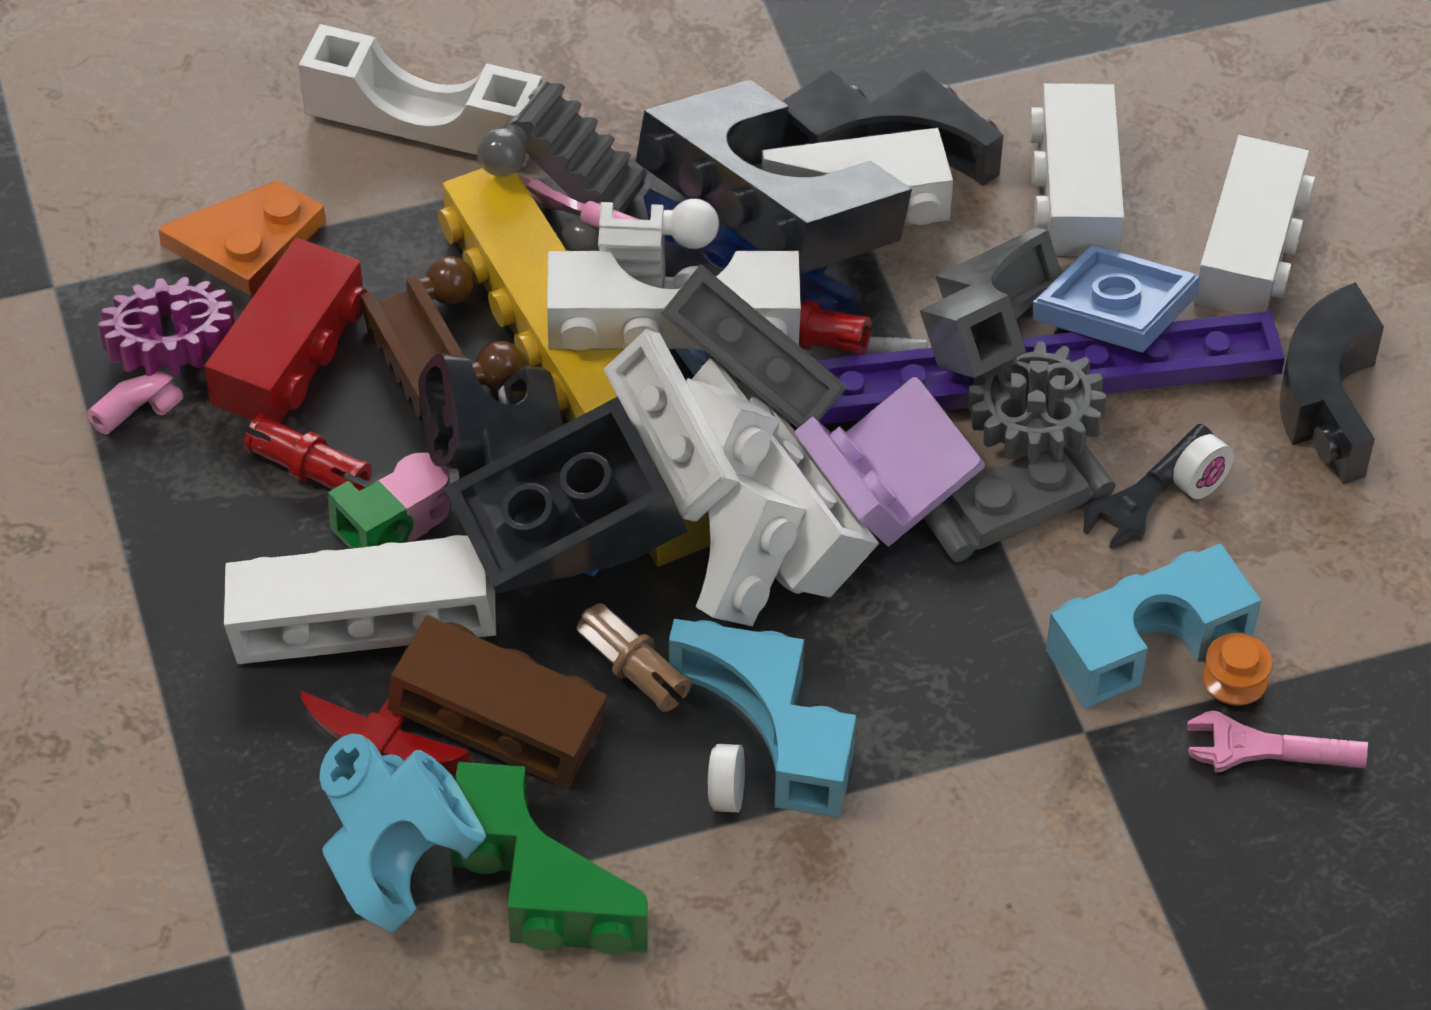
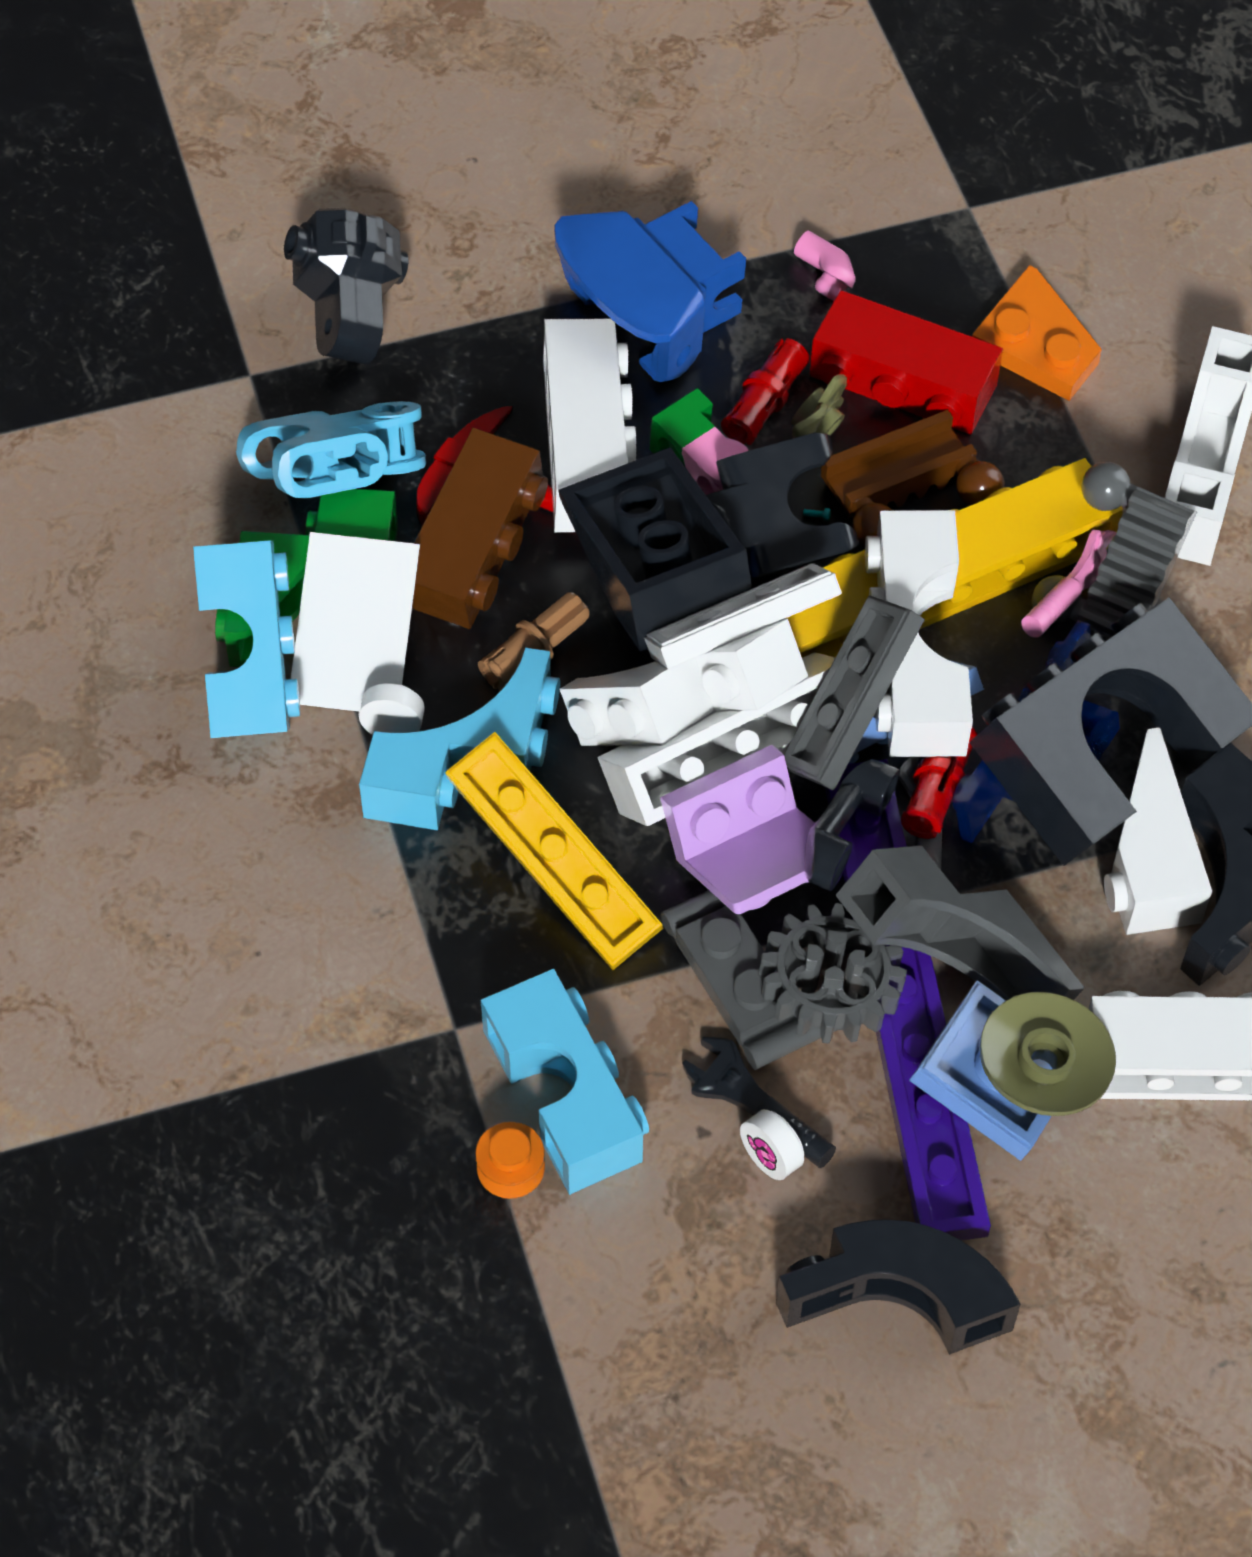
camera: 90 degrees right, 5 degrees up
(126, 825) = (346, 267): none -> black piece
(134, 329) = (904, 270): magenta gear -> none
(177, 524) = (651, 280): none -> blue piece
(373, 402) = (821, 410): none -> olive plate
(620, 807) = (353, 618): none -> white sticker
(627, 865) = (257, 693): none -> medium azure arch
(640, 243) = (986, 619): white gear -> none
(901, 626) = (554, 851): none -> yellow tile
(937, 383) = (865, 787): none -> black bar
(1121, 242) = (1054, 1031): none -> olive dish
(1240, 744) = (429, 1166): bright pink piece -> none
(1254, 227) = (1123, 1222): white brick -> none

